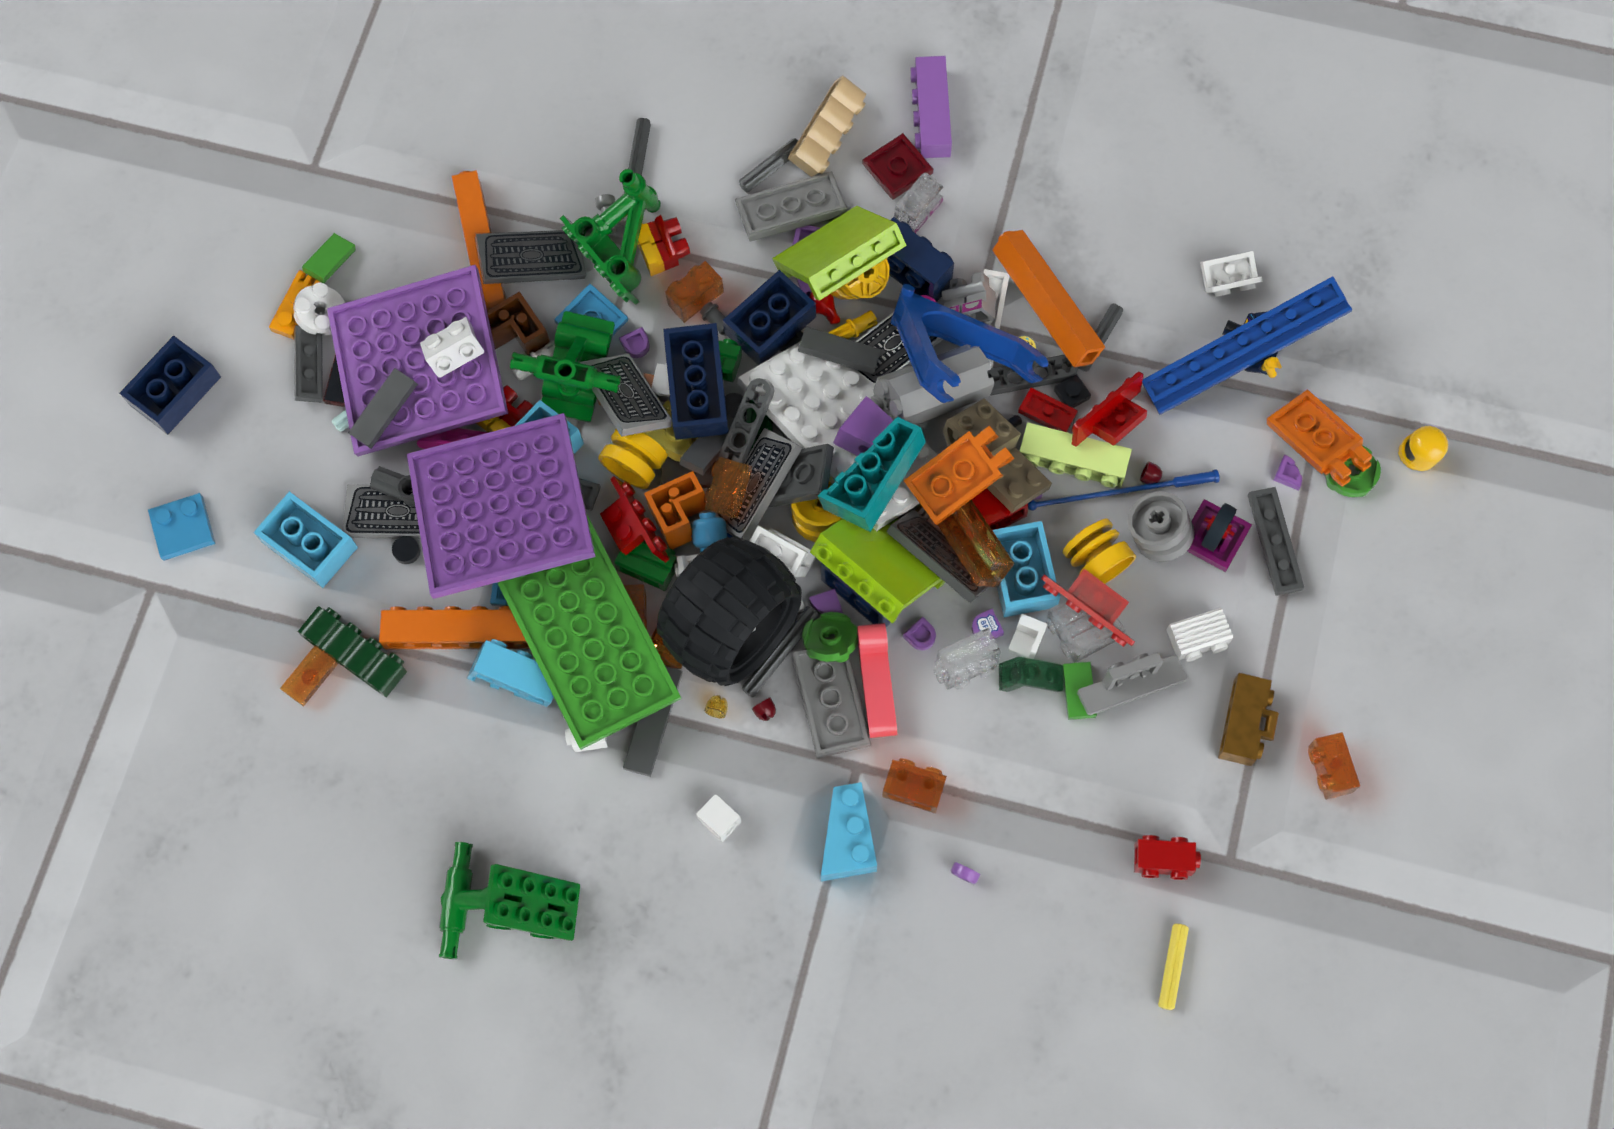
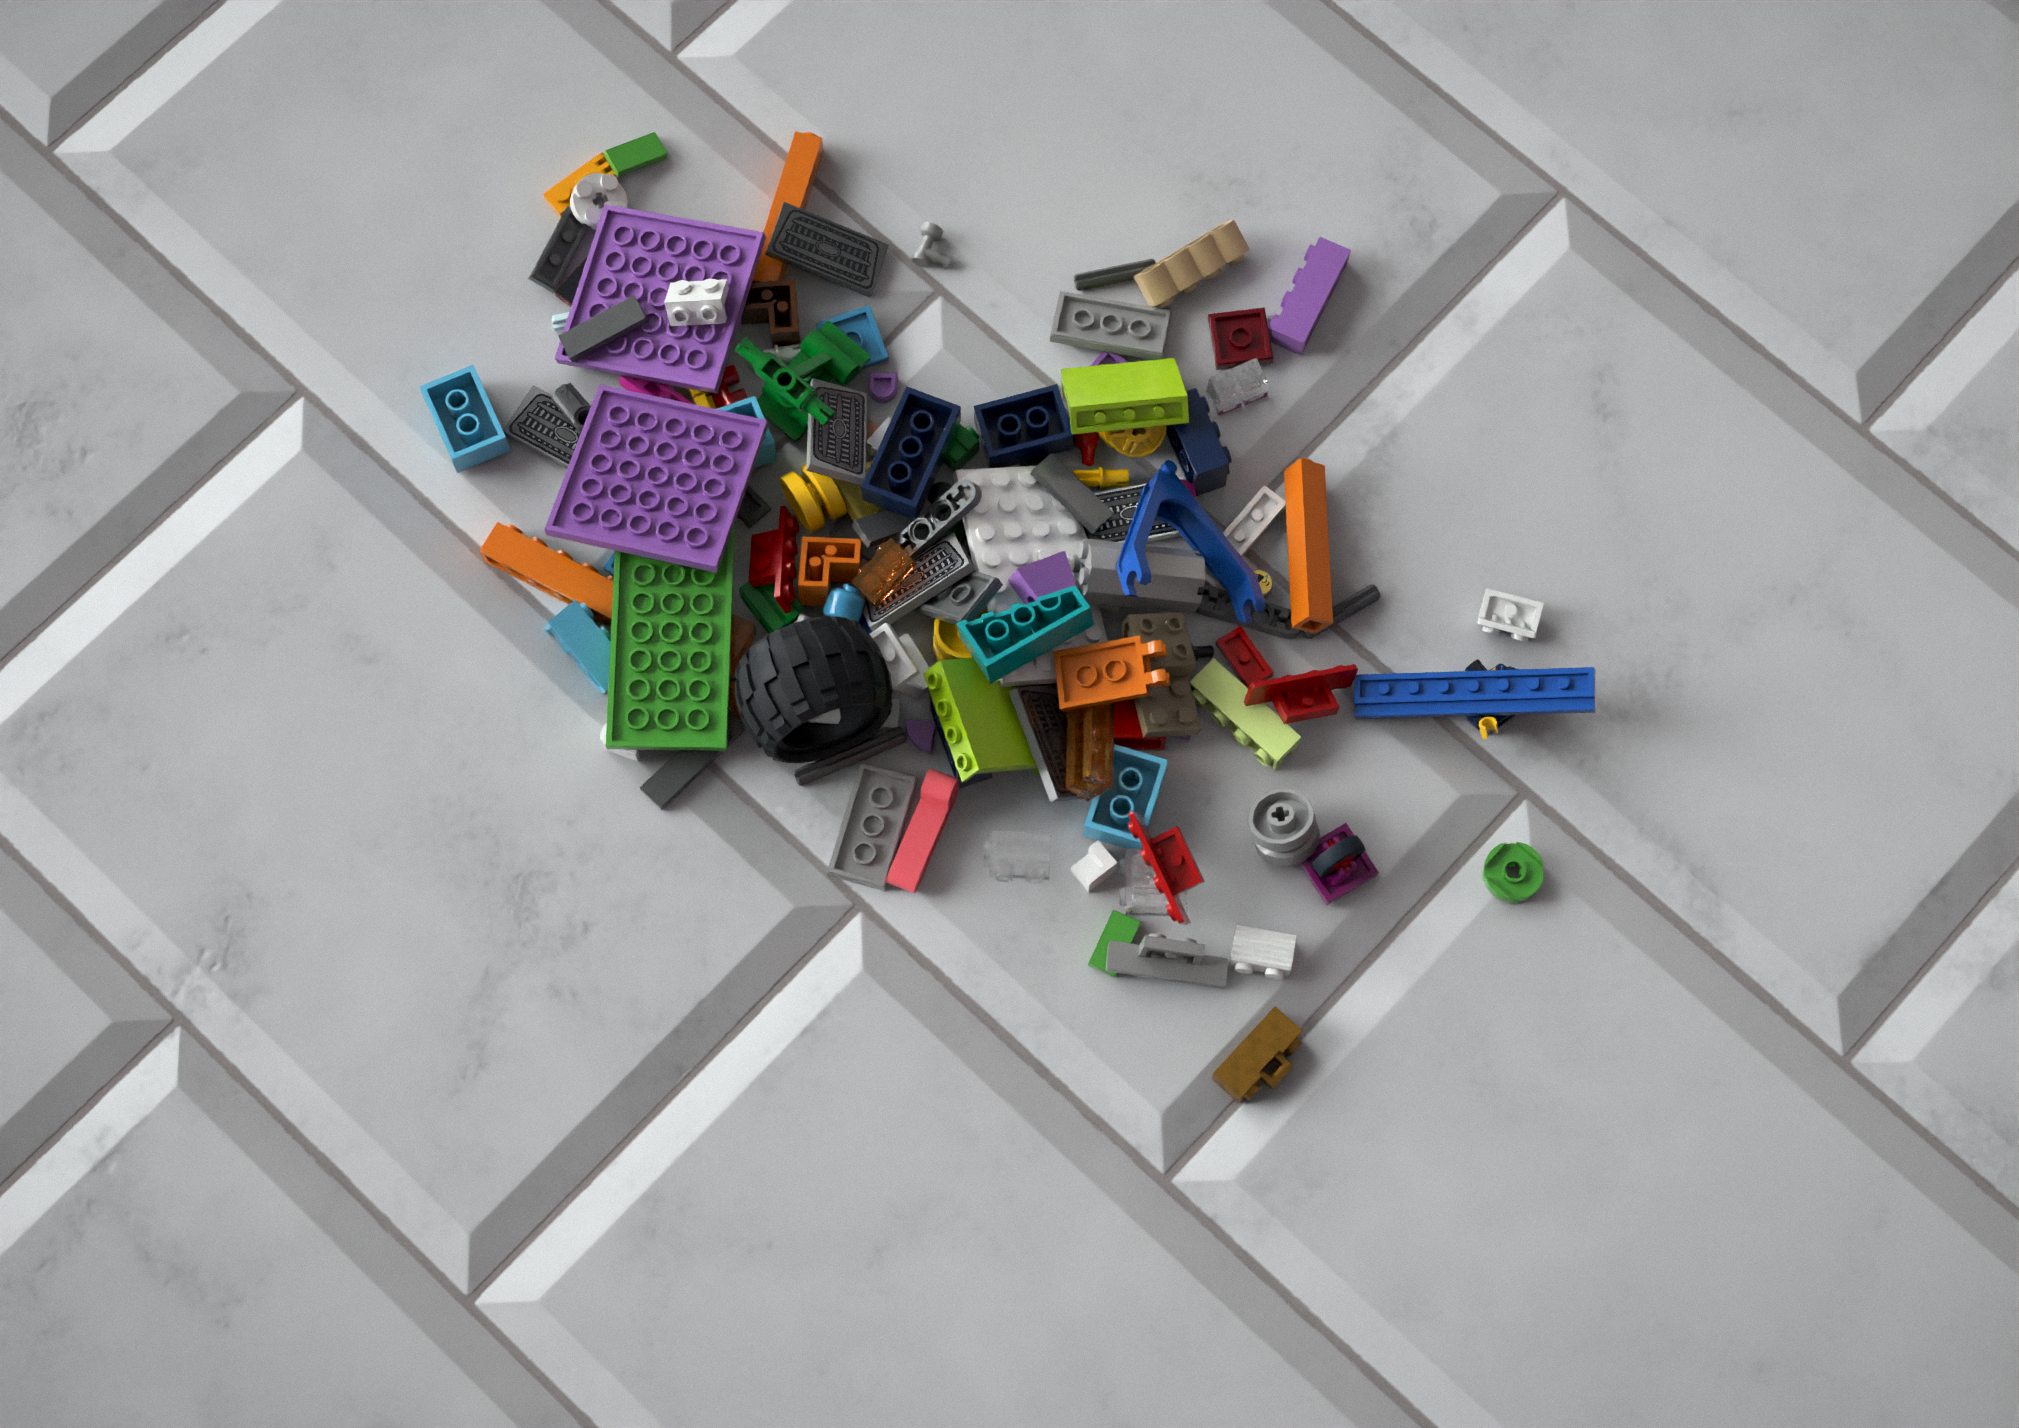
camera: 25 degrees right, 0 degrees up
(170, 384) = (420, 205): dark blue brick -> none
(181, 526) = (359, 347): dark azure plate -> none
(309, 676) = (399, 549): clear orange plate -> none
(352, 651) = (451, 546): dark green brick -> none
(406, 550) = (552, 475): black tile -> none
(511, 902) = (463, 853): green plate -> none
(594, 233) = (898, 260): green plate -> none
(639, 145) = (984, 207): dark grey axle -> none
(657, 247) = (956, 299): red hips -> none
(694, 291) = (966, 363): clear orange brick -> none
(713, 315) = (972, 395): dark grey pin -> none
(716, 707) = (758, 777): clear yellow hinge -> none
(718, 818) = (701, 881): white panel -> none
(765, 710) = (803, 803): dark red hinge -> none
(830, 650) = (897, 779): bright green plate -> none
(848, 838) = (811, 962): medium azure wedge -> none
(914, 785) = (902, 948): clear orange brick -> none
(920, 635) = (993, 810): medium lavender tile -> none
(965, 873) = (902, 1055): medium lavender tile -> none
(972, 299) = (1231, 510): light grey hips -> none
(987, 620) = (1062, 835): tile -> none
(1030, 673) = (1076, 903): clear green bracket -> none
(1072, 391) = (1281, 652): black plate -> none
(1096, 550) = (1208, 821): yellow wheel -> none
(1151, 473) = (1310, 772): dark red hinge -> none
(1170, 858) = (1101, 1143): red brick -> none
(1173, 966) = (1048, 1248): light yellow axle -> none
(1181, 481) = (1332, 793): blue piece -> none
(1275, 541) = (1393, 901): dark grey plate -> none
(1288, 473) = (1448, 842): medium lavender tile -> none
(1320, 437) = (1499, 821): orange tile -> none
(1333, 766) = (1316, 1144): clear orange brick -> none
(1427, 446) = (1599, 887): yellow helmet -> none

